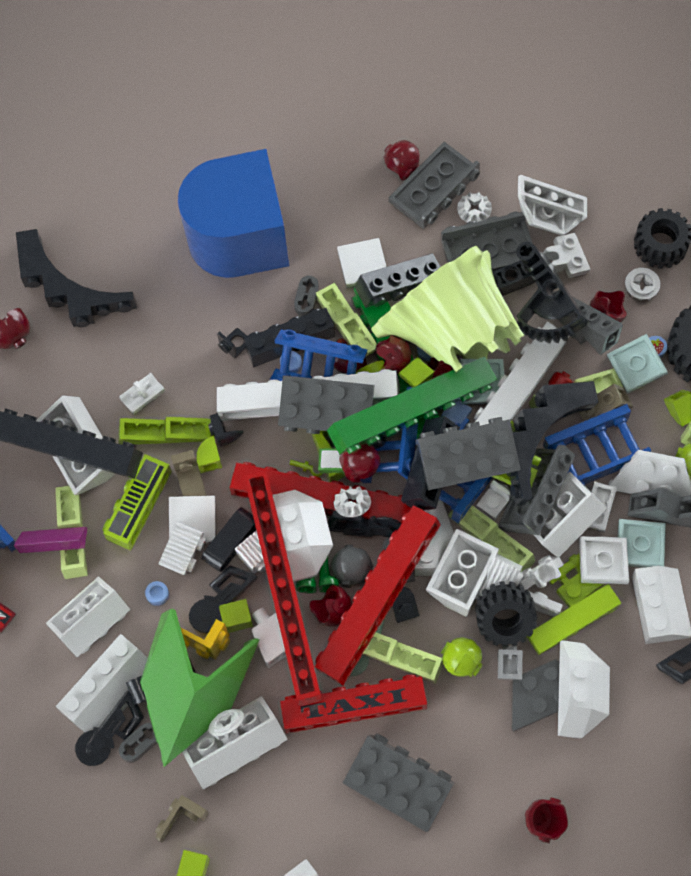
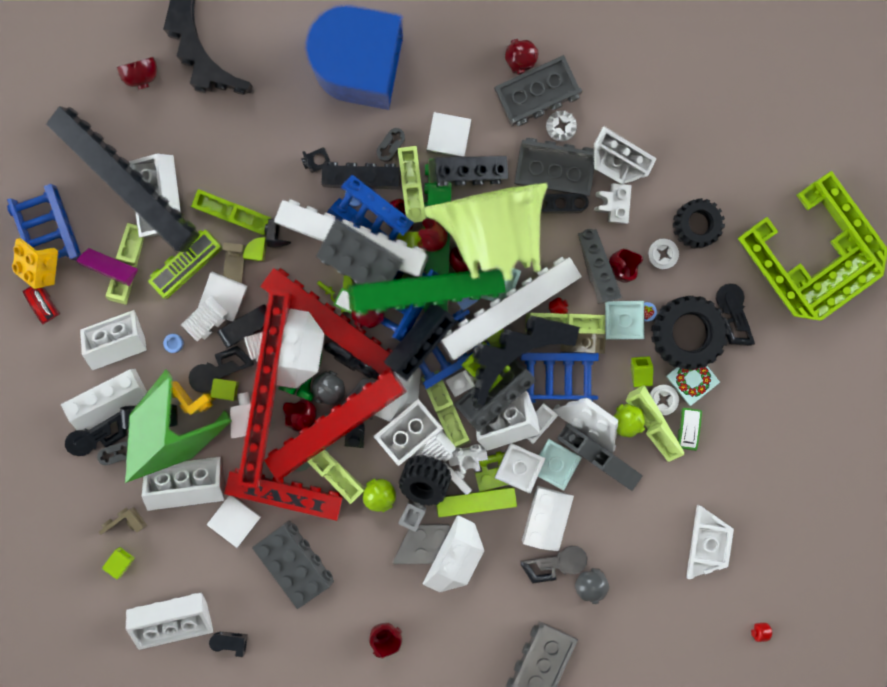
camera: 15 degrees right, 20 degrees up
(142, 393) = (223, 174): white hips -> none
(227, 723) = (184, 465): white gear -> none
(308, 761) = (233, 520): none -> white tile
(349, 508) = (342, 348): white gear -> none
(416, 373) = (443, 261): lime brick -> none
(468, 453) = (449, 351): dark grey bracket -> none
(543, 302) = (583, 225): black arm -> none

